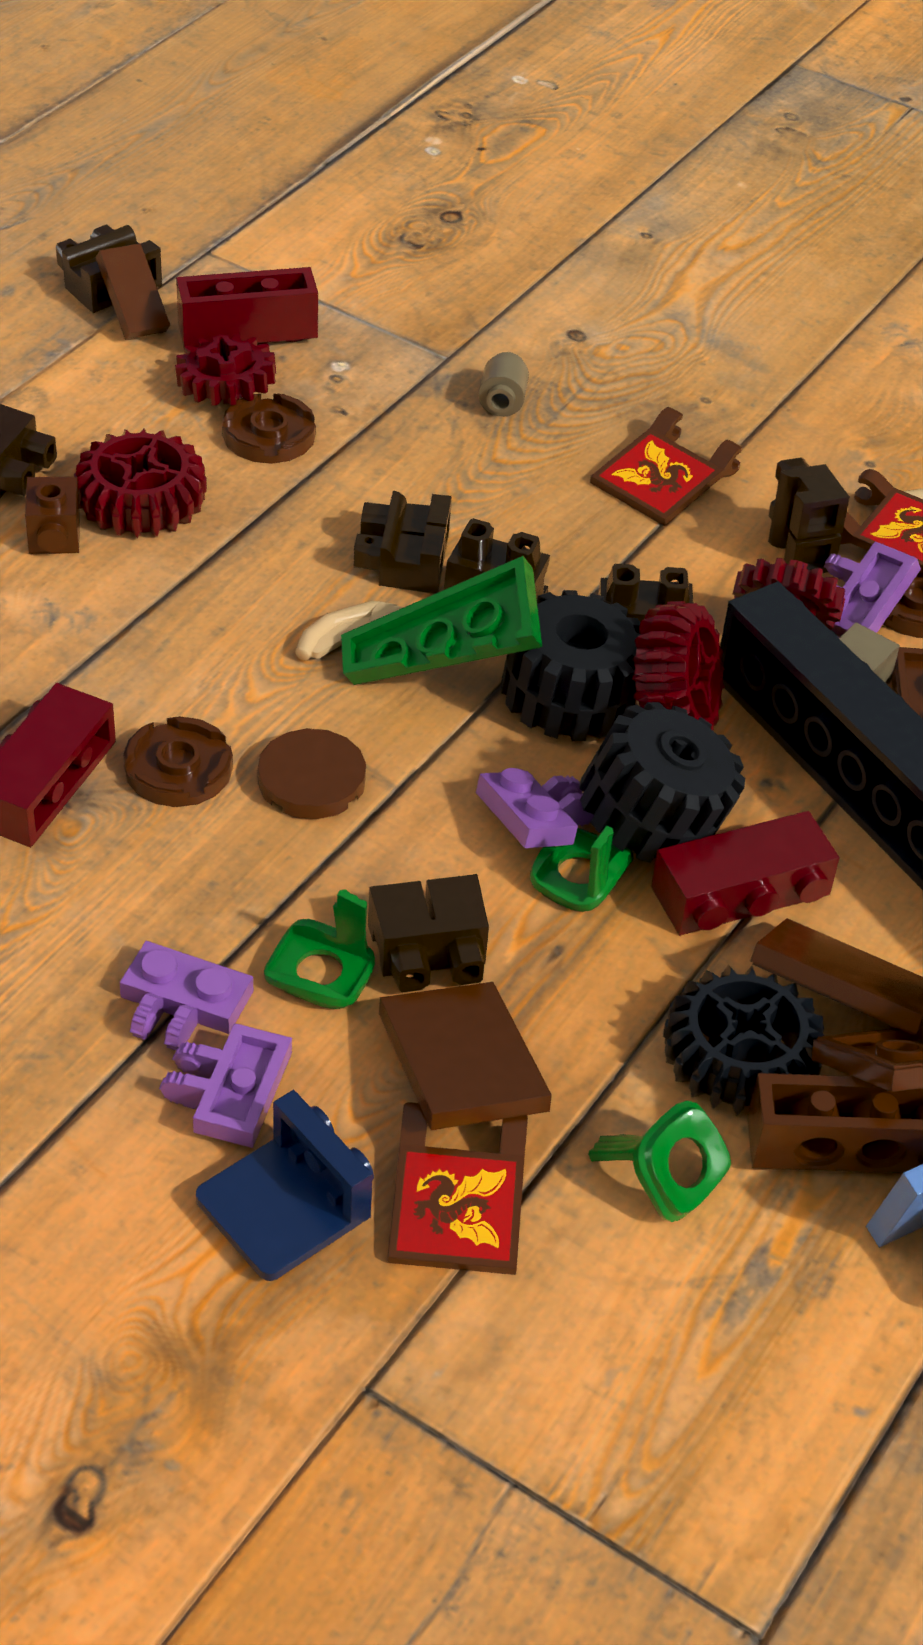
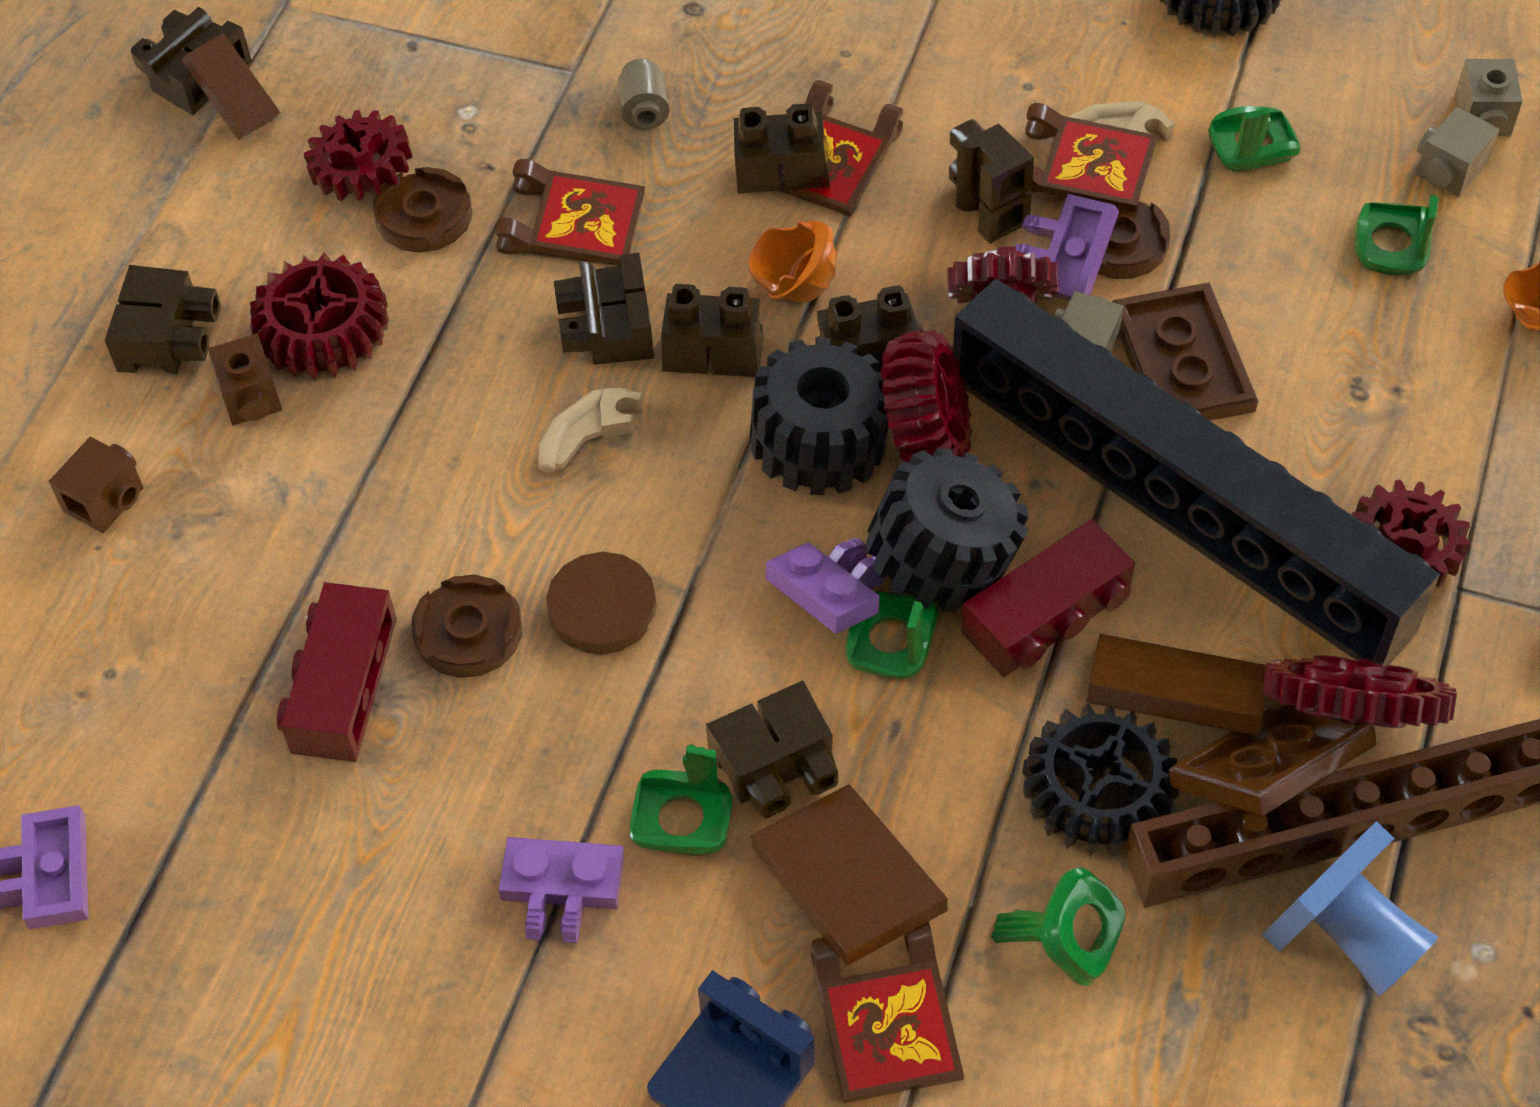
camera: 10 degrees left, 10 degrees up
(240, 1082) = (650, 965): medium lavender hinge -> none
(251, 303) = (356, 75): dark red brick -> none
(402, 461) = (575, 217): none -> flag
(459, 625) = (699, 409): green wing -> none
(596, 539) = (794, 261): none -> orange piece
(614, 446) = (785, 139): none -> dark brown hips

